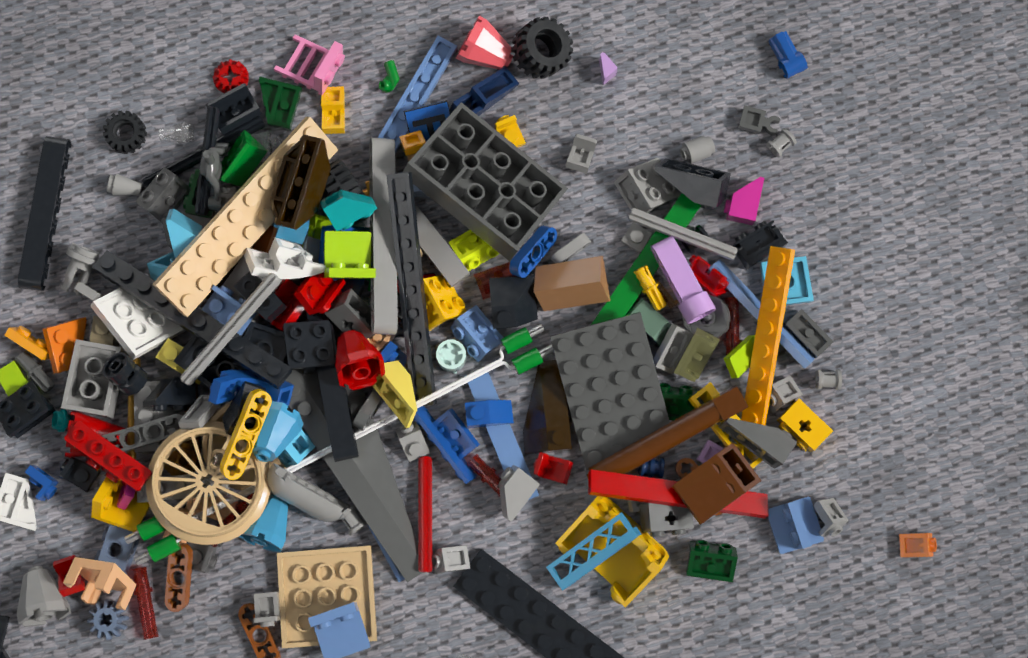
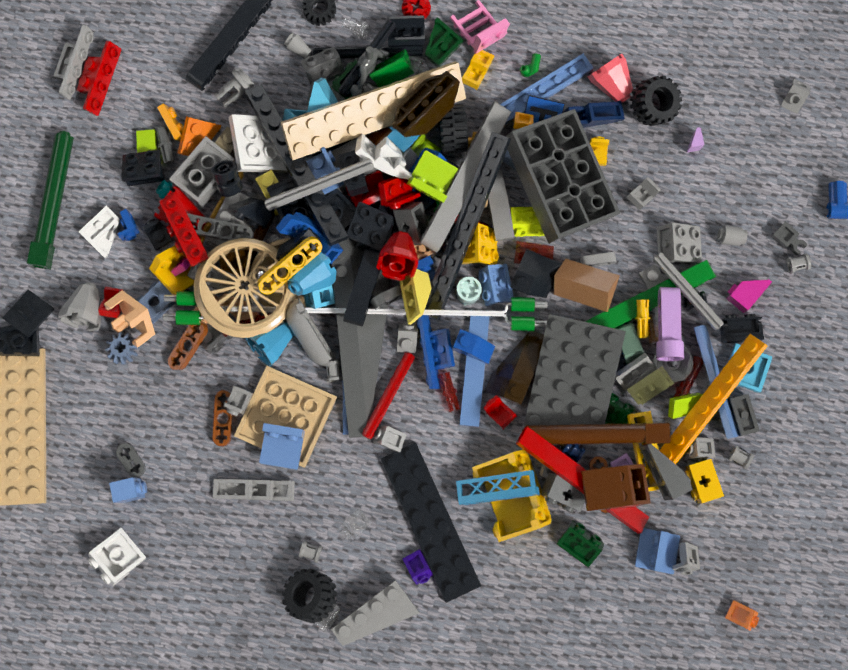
camera: 30 degrees right, 0 degrees up
(87, 291) = (231, 106): light grey tile -> none
(145, 604) = (154, 350): clear red pin -> none
(198, 413) = (264, 234): light grey tile -> none
(347, 207) = (450, 141): teal slope -> none
(515, 491) = (463, 413): light grey slope -> none
(523, 261) = (558, 250): blue beam -> none
(696, 182) = (719, 259): black slope -> none
(712, 282) = (691, 339): red hinge -> none

